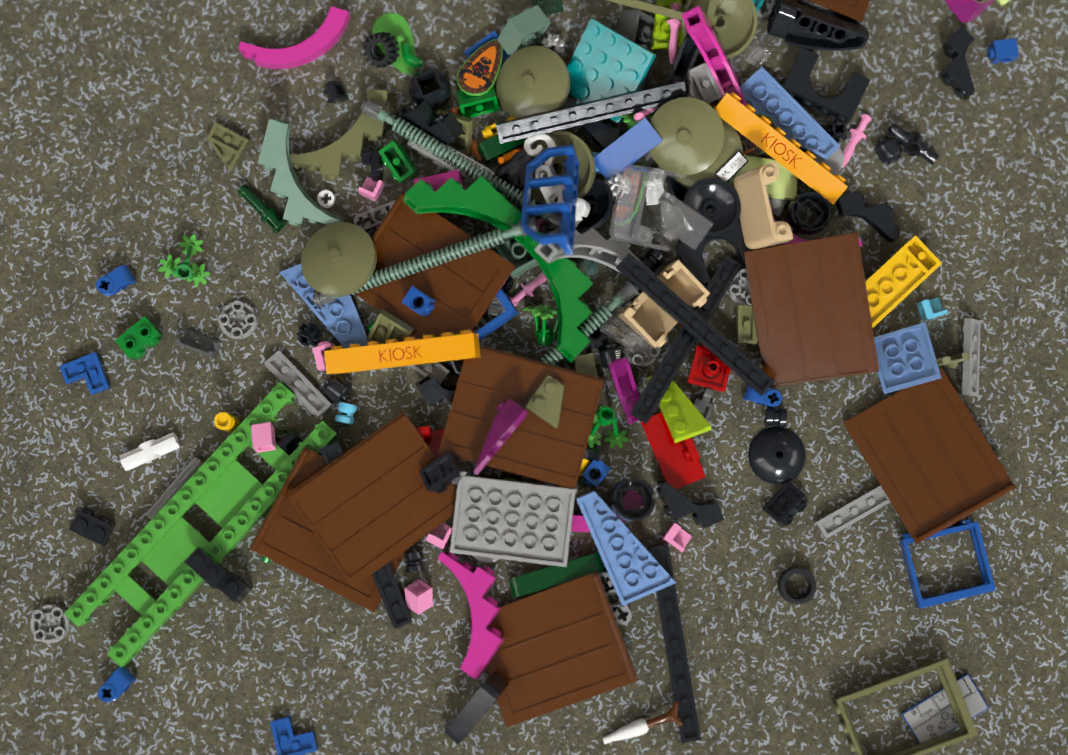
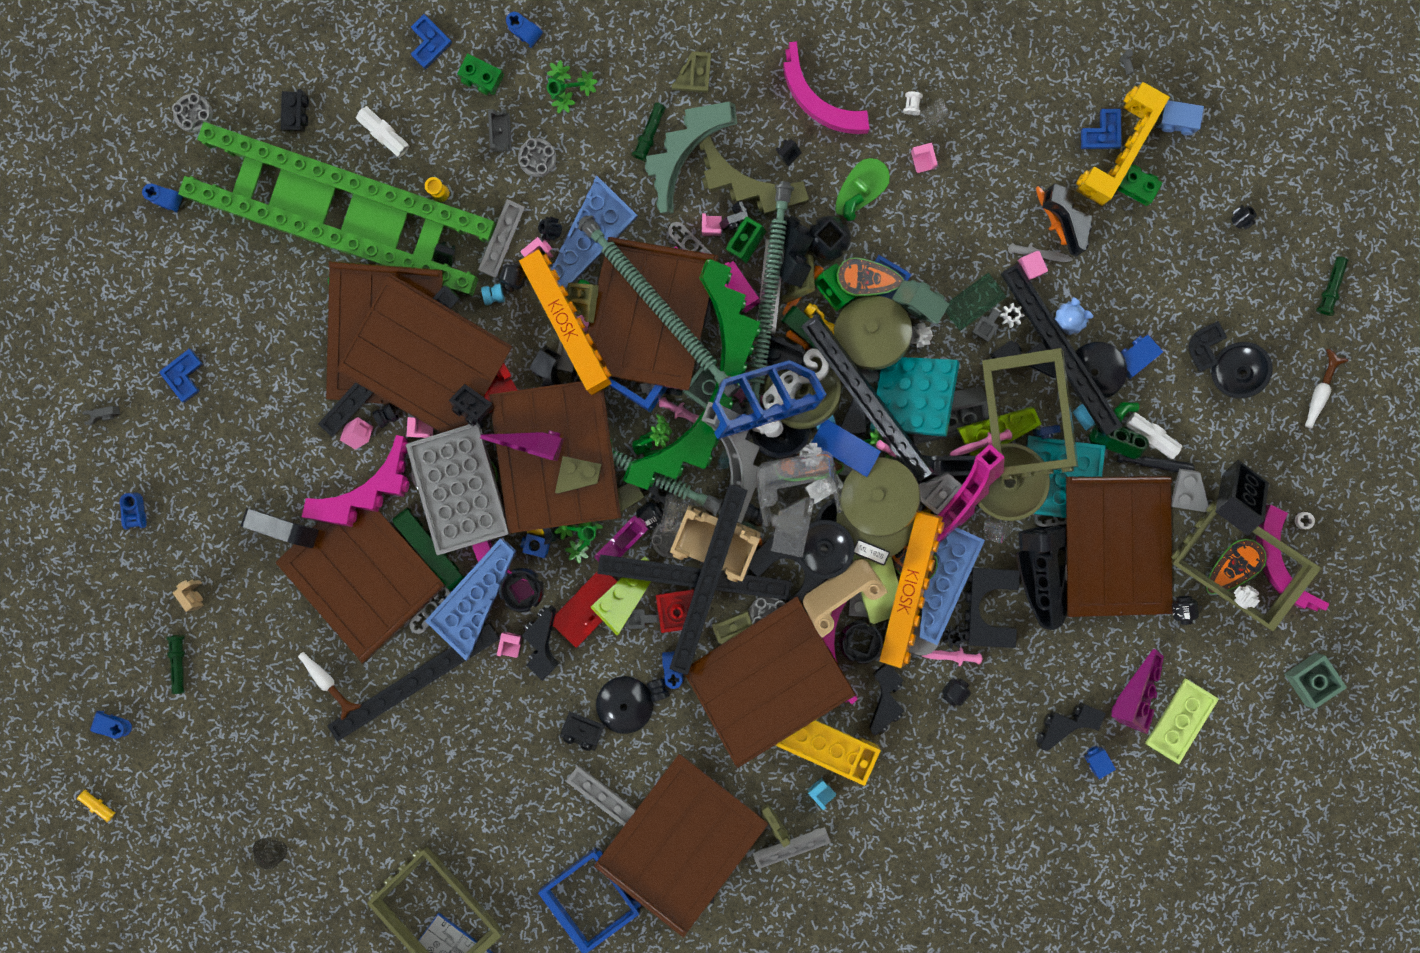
camera: 65 degrees right, 5 degrees up
(175, 486) = (360, 169): light grey axle -> none
(218, 576) = (294, 243): black arch -> none
(263, 437) = (436, 229): bright pink panel -> none
(330, 202) = (681, 193): white bush -> none
(339, 259) = (628, 225): olive dish -> none
(372, 53) = (839, 170): black tyre -> none
(411, 301) = (616, 308): blue brick -> none
(811, 585) = (501, 781): black tyre -> none
(906, 138) = (971, 712): black pin -> none
(906, 358) = (762, 787): medium blue plate -> none

